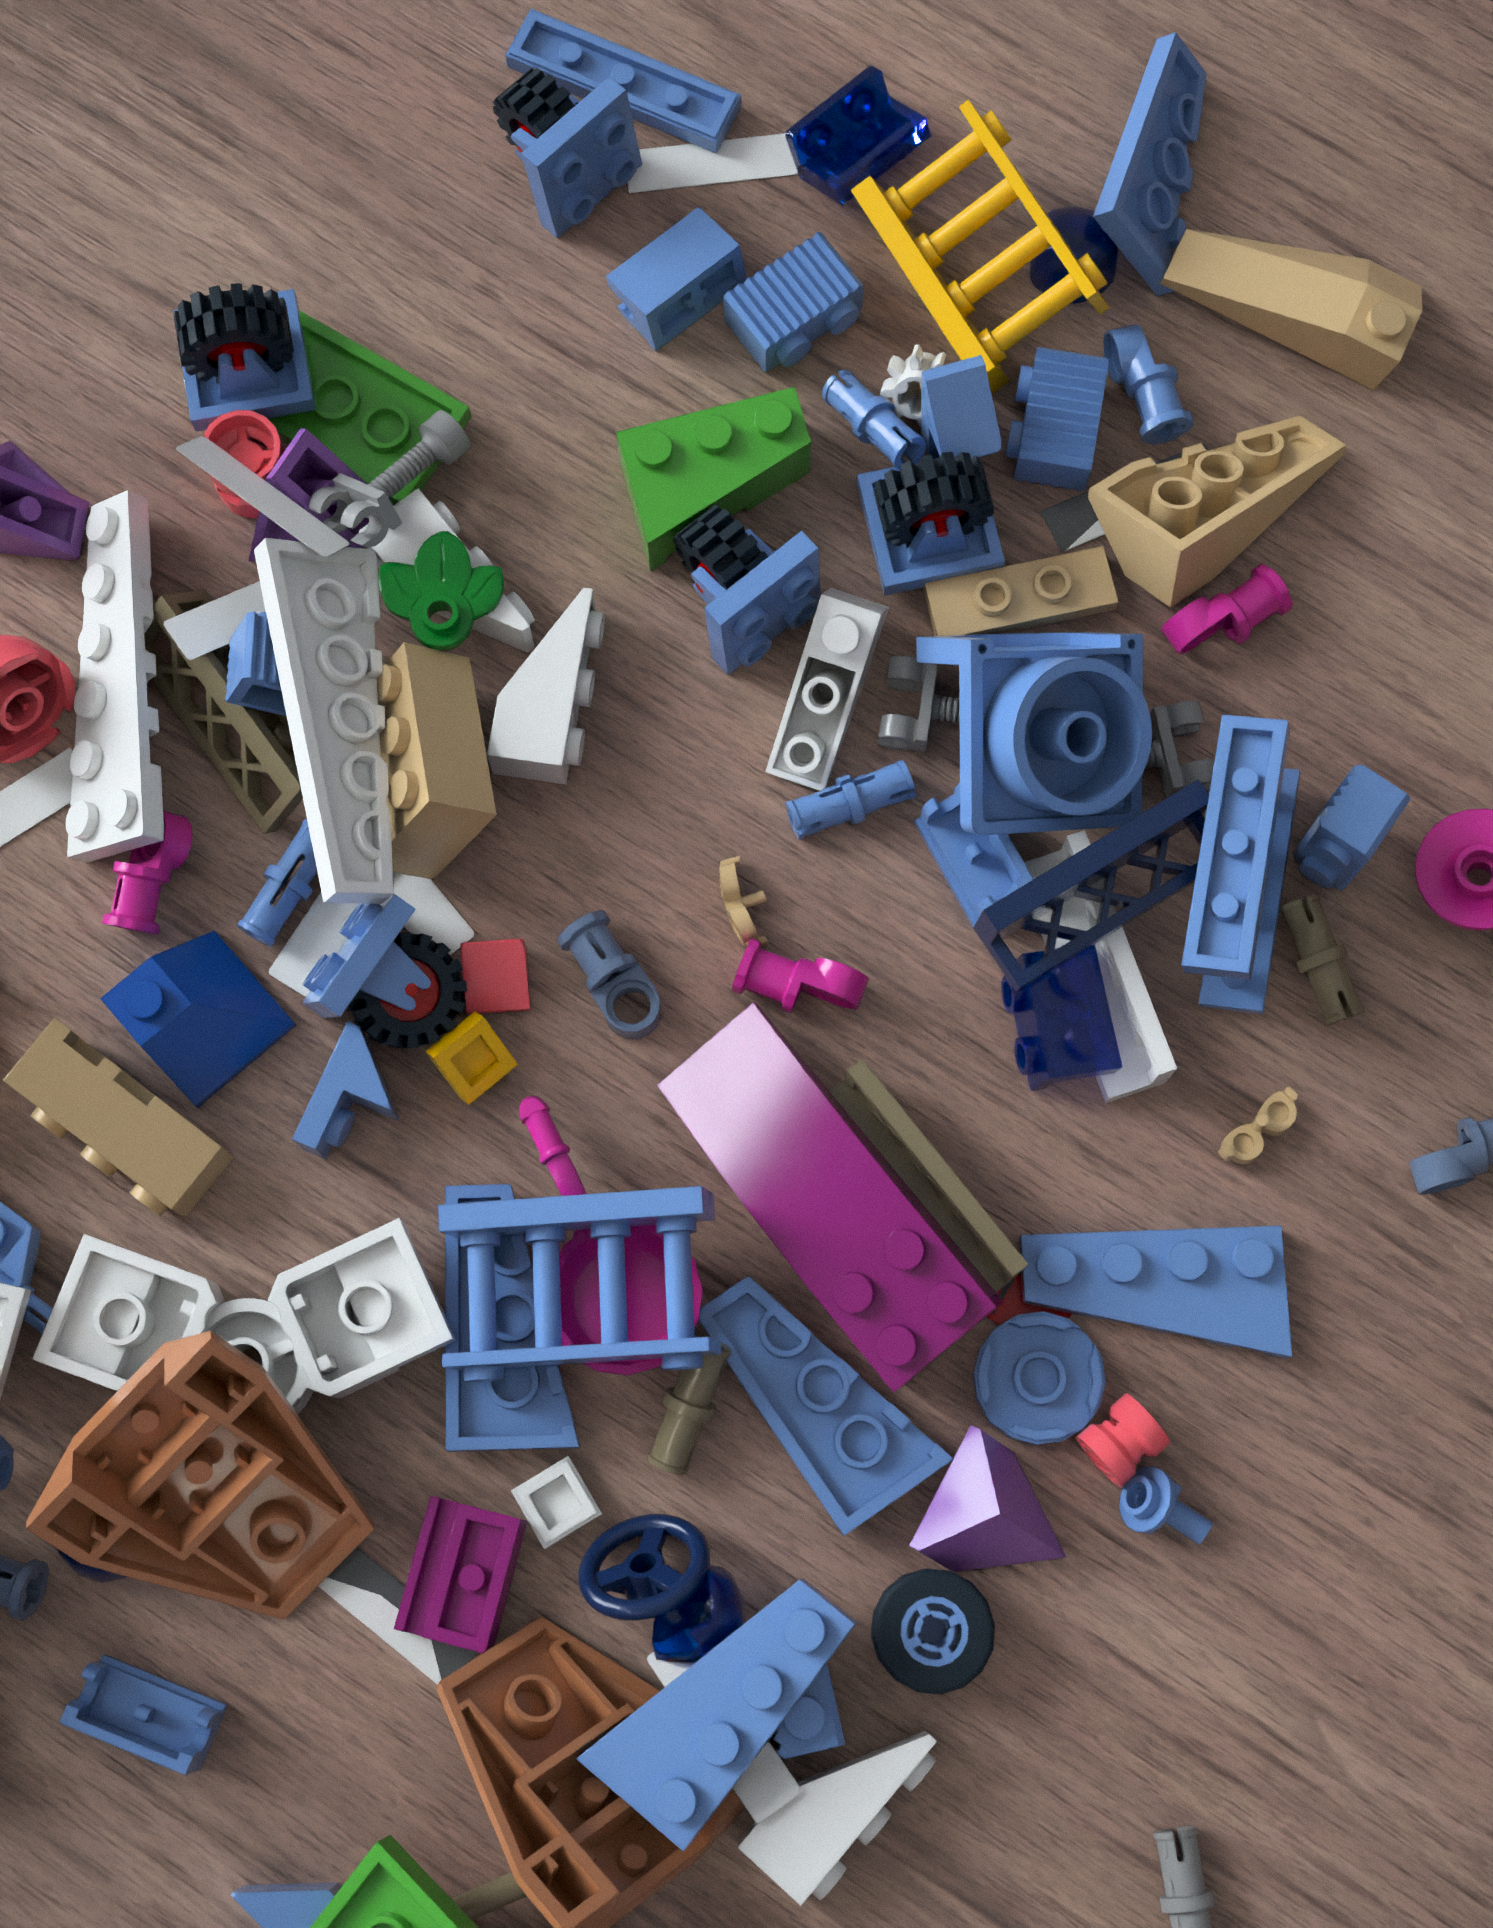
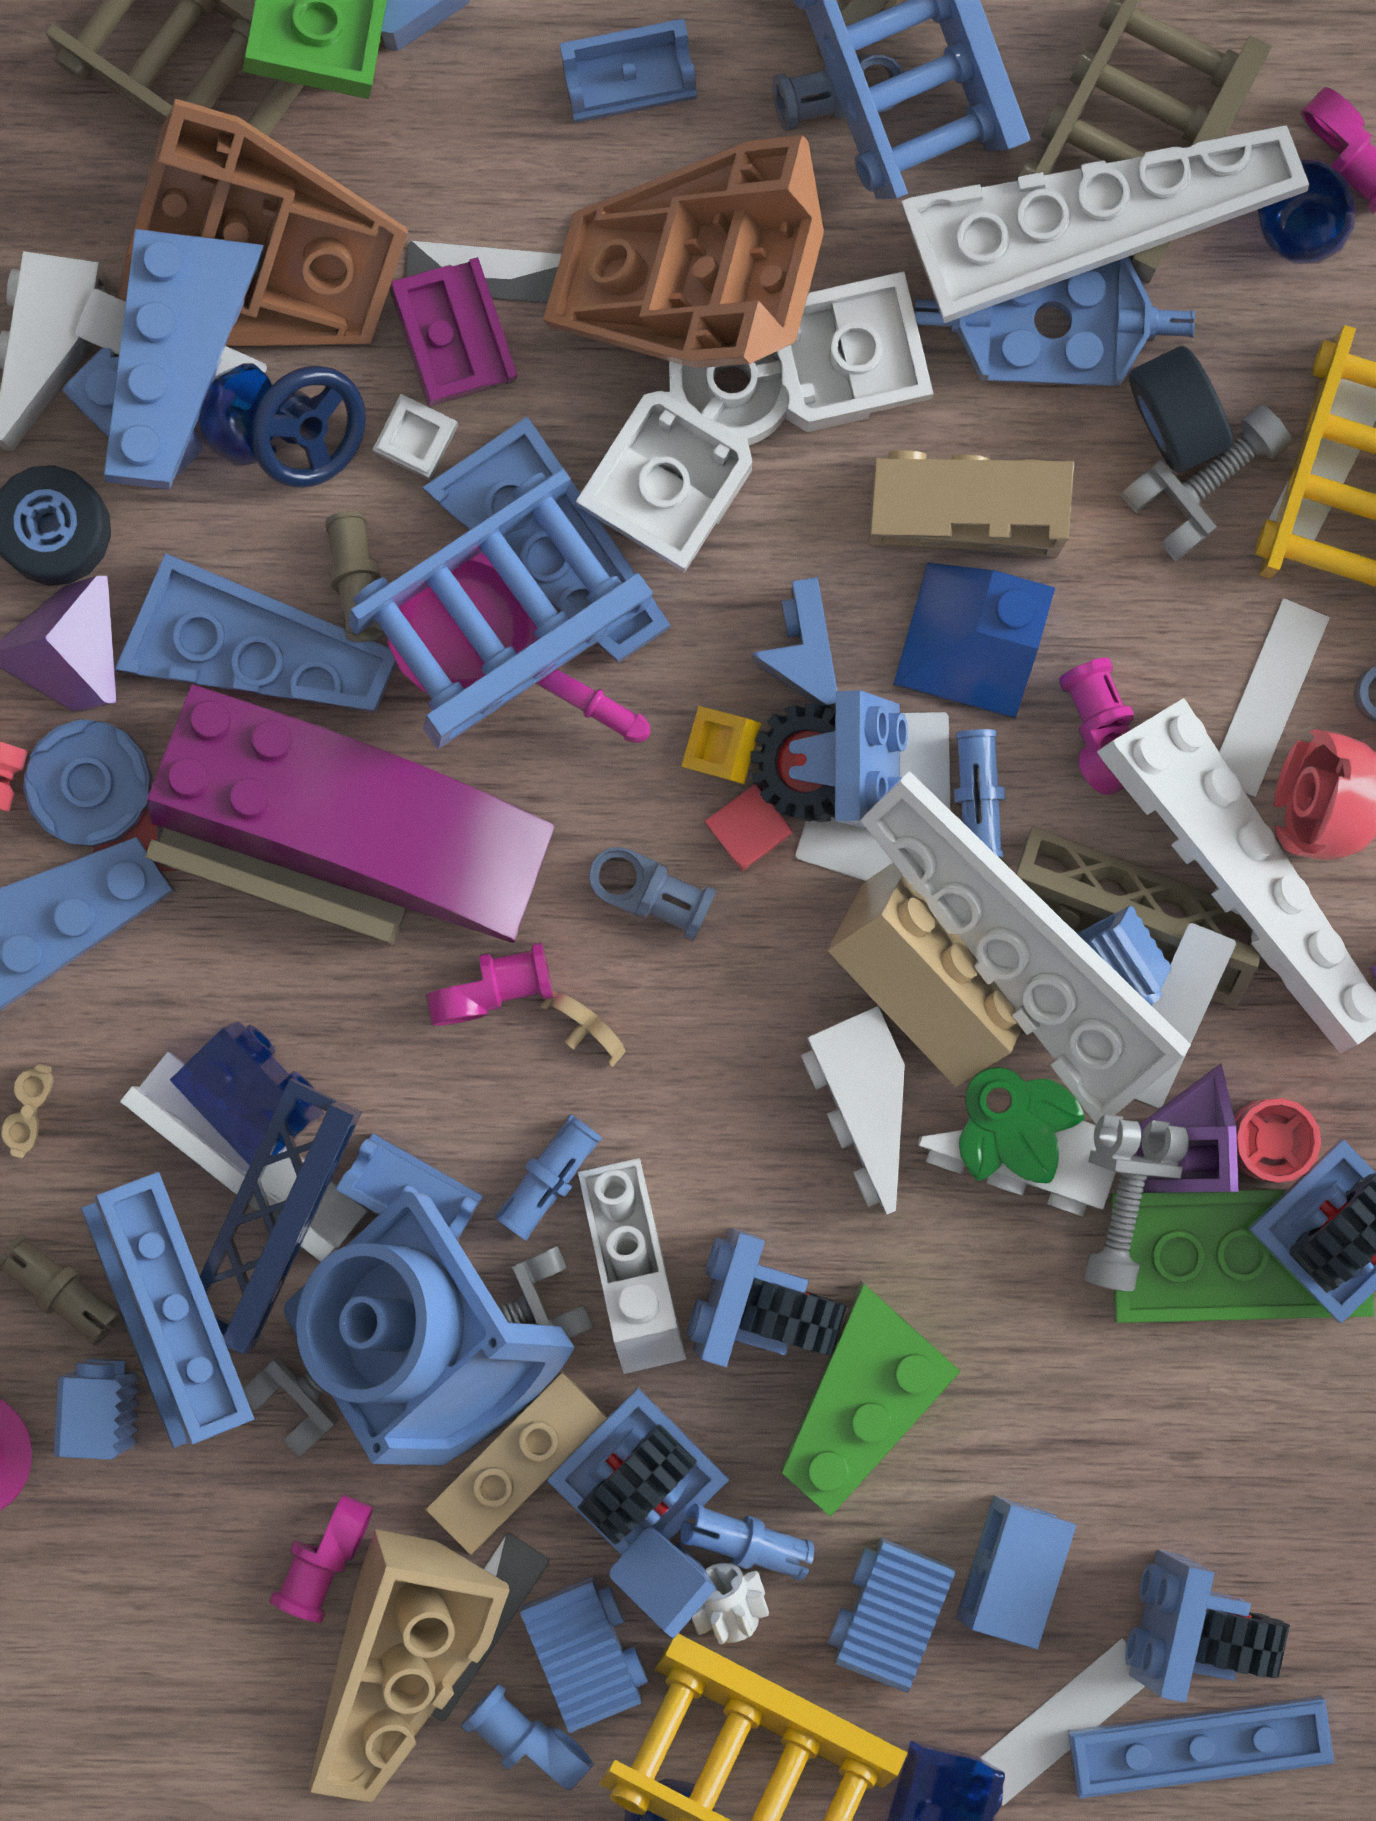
camera: 150 degrees right, 10 degrees up
(263, 496) = (1221, 1102): white sticker -> none

